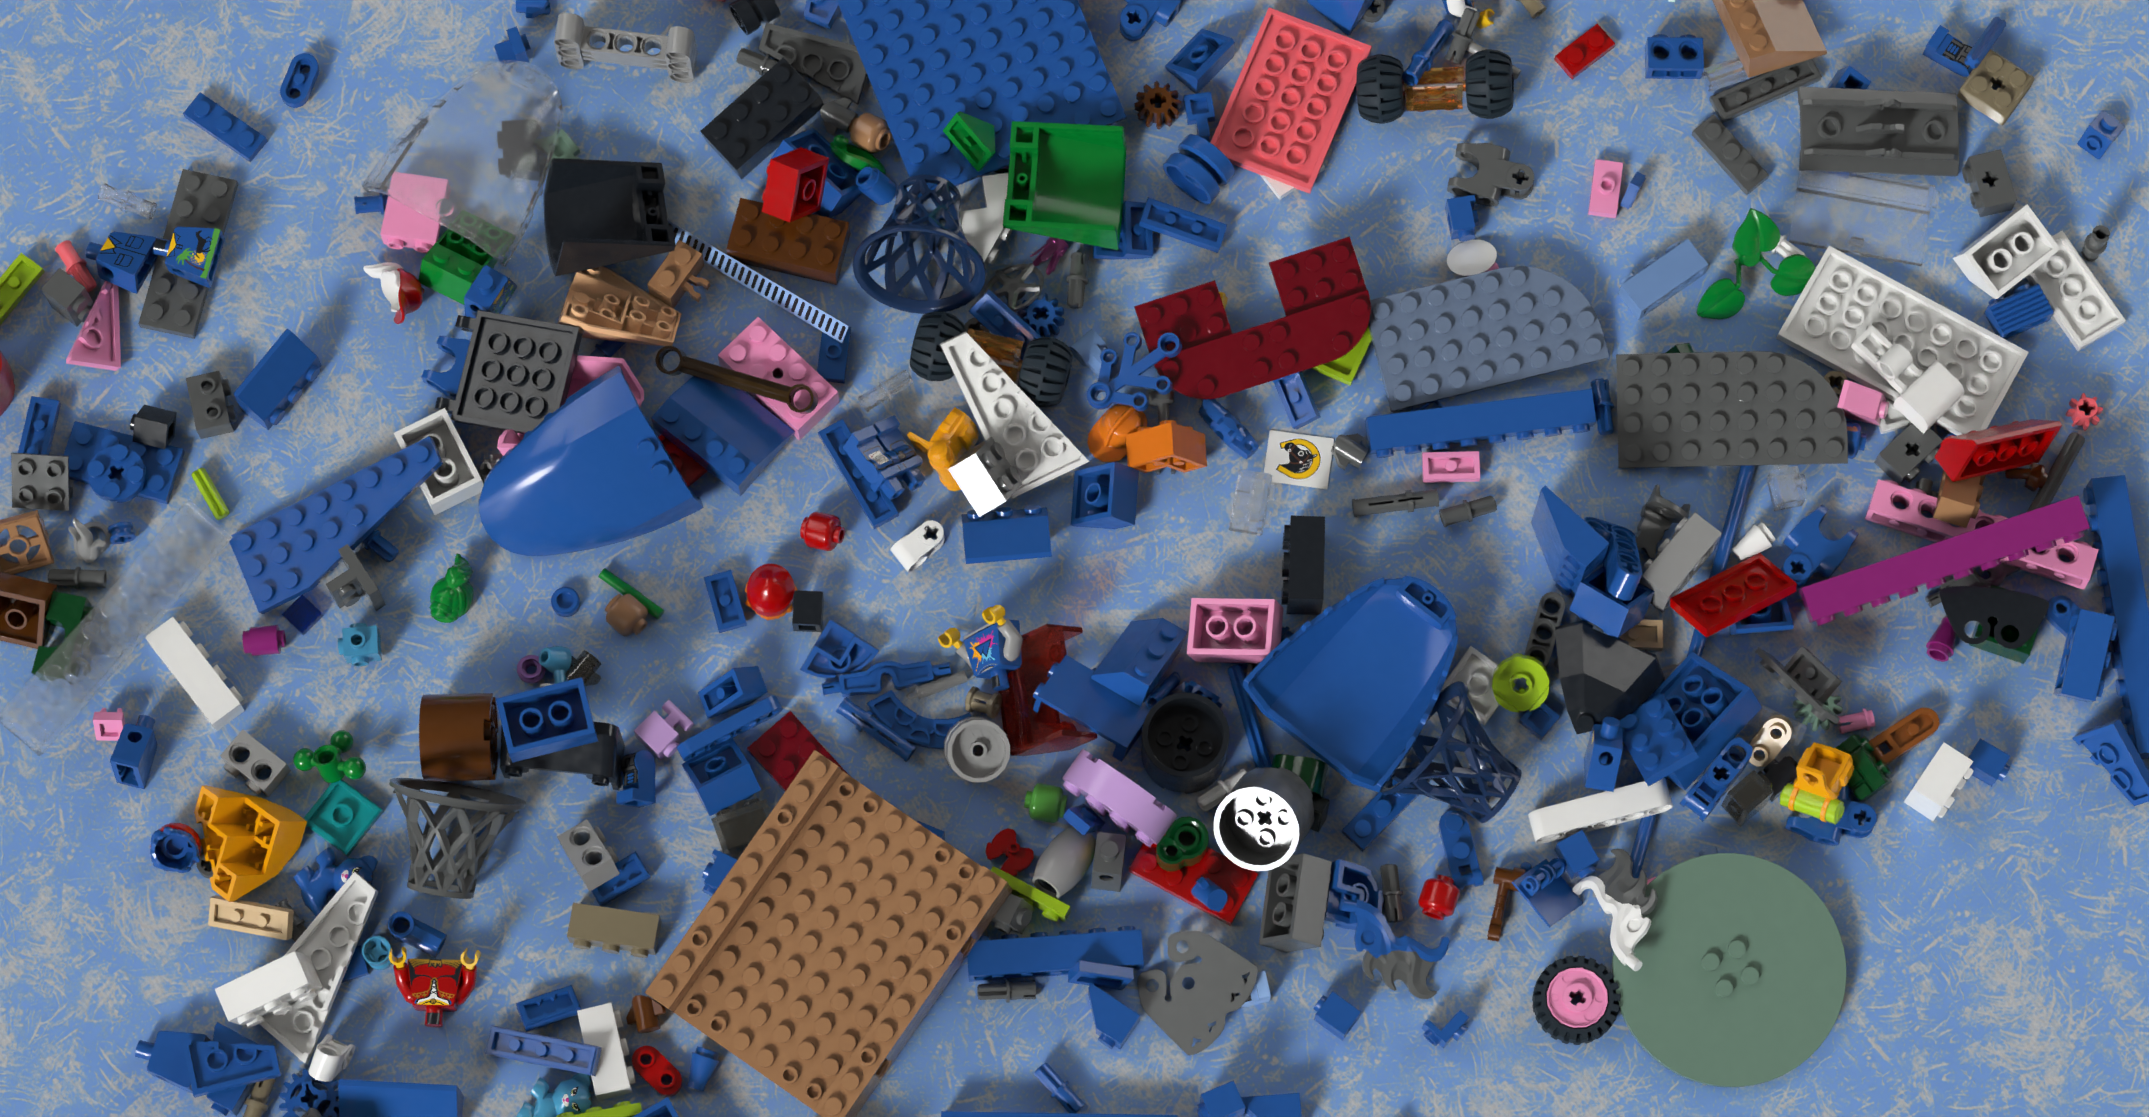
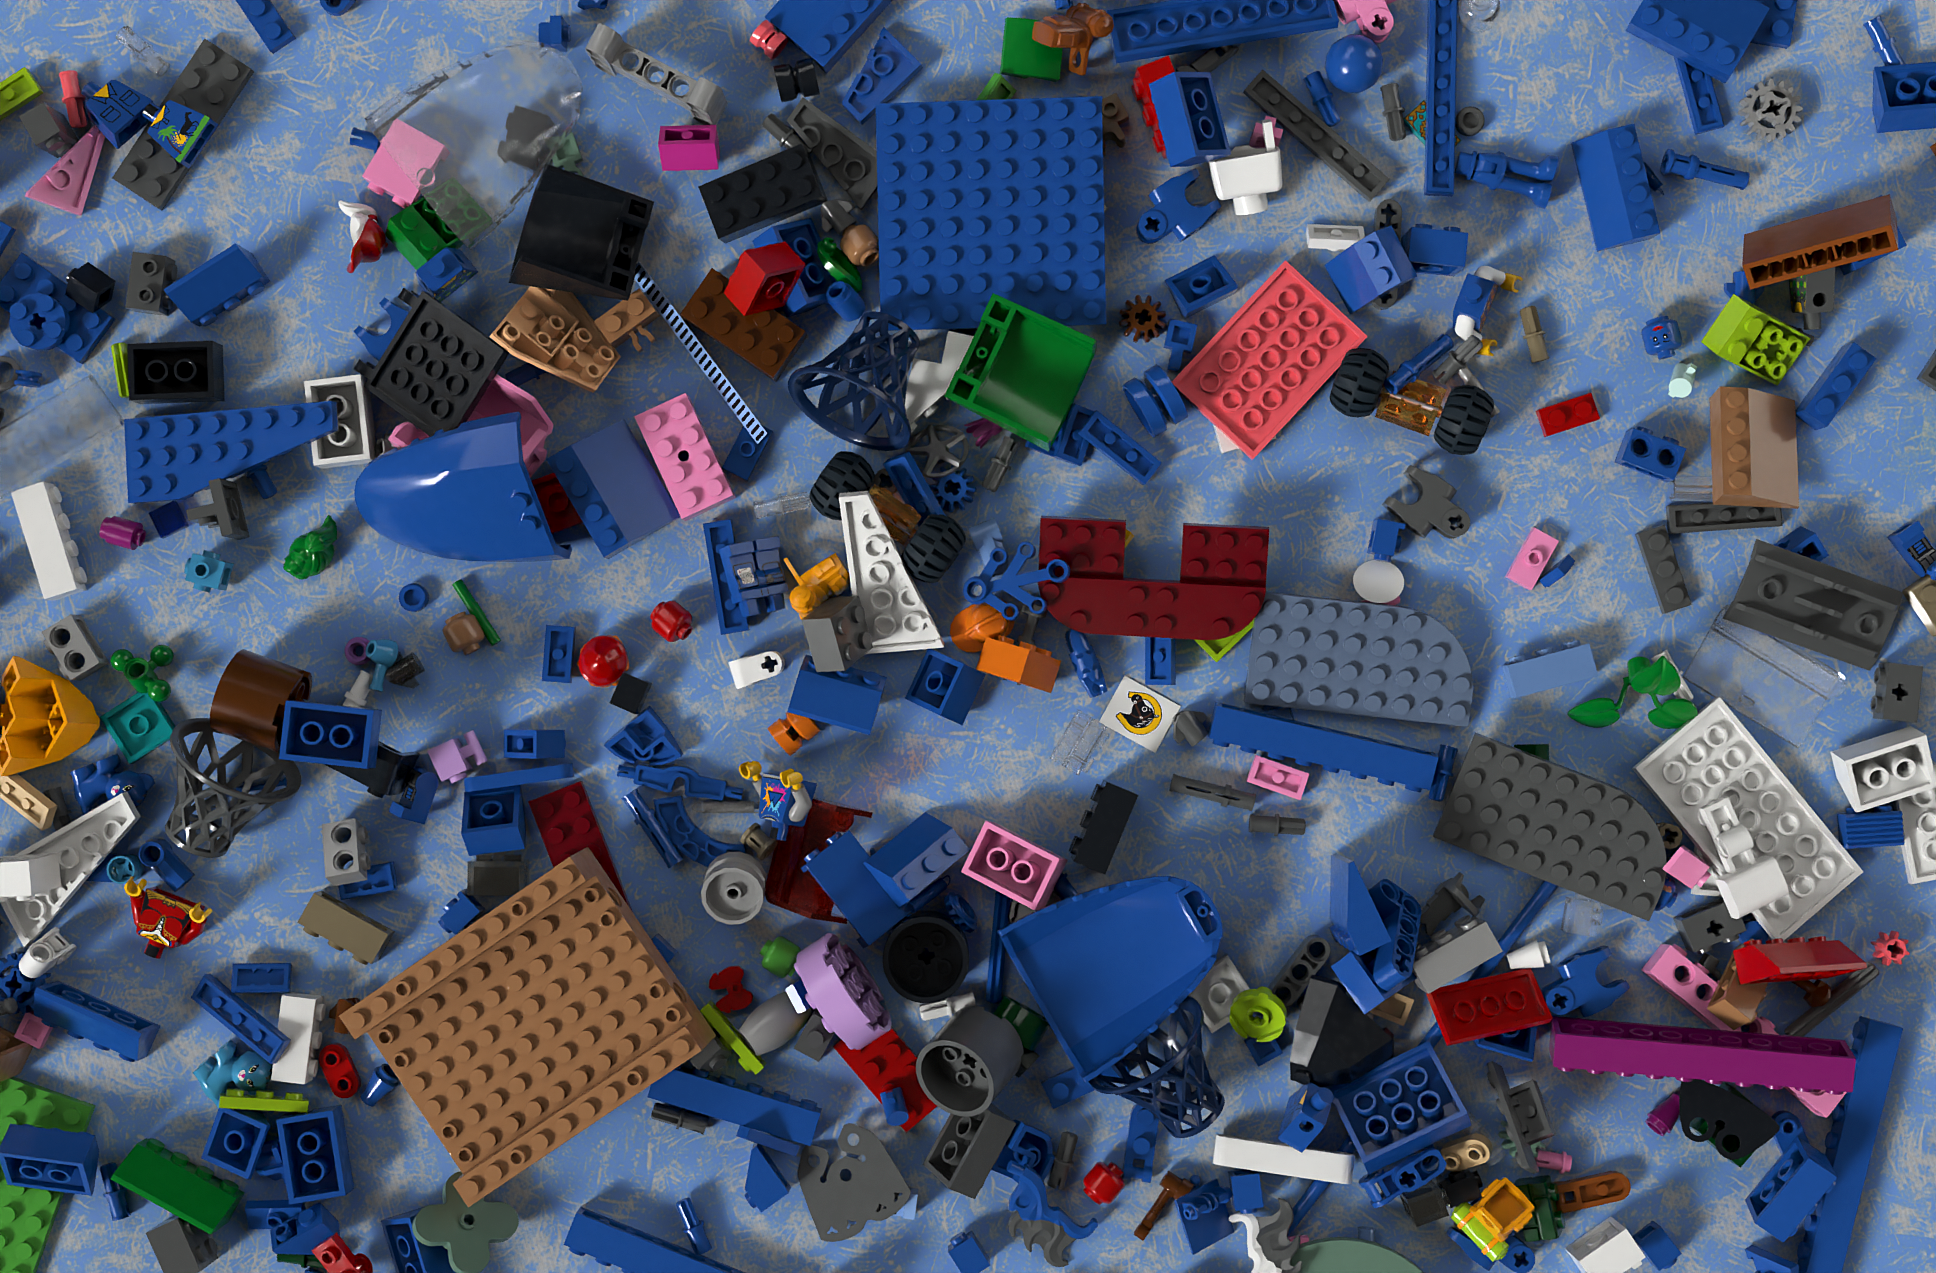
camera: 20 degrees right, 15 degrees up
(264, 473) = (175, 372): none -> black brick
(677, 103) = (689, 147): none -> dark pink brick
(736, 379) = (640, 450): dark brown piece -> none
(972, 138) = (952, 293): green slope -> none
(982, 578) = (805, 728): none -> orange wheel
(1182, 844) = (888, 1052): dark green piece -> none
(1656, 740) = (1361, 1122): blue plate -> none

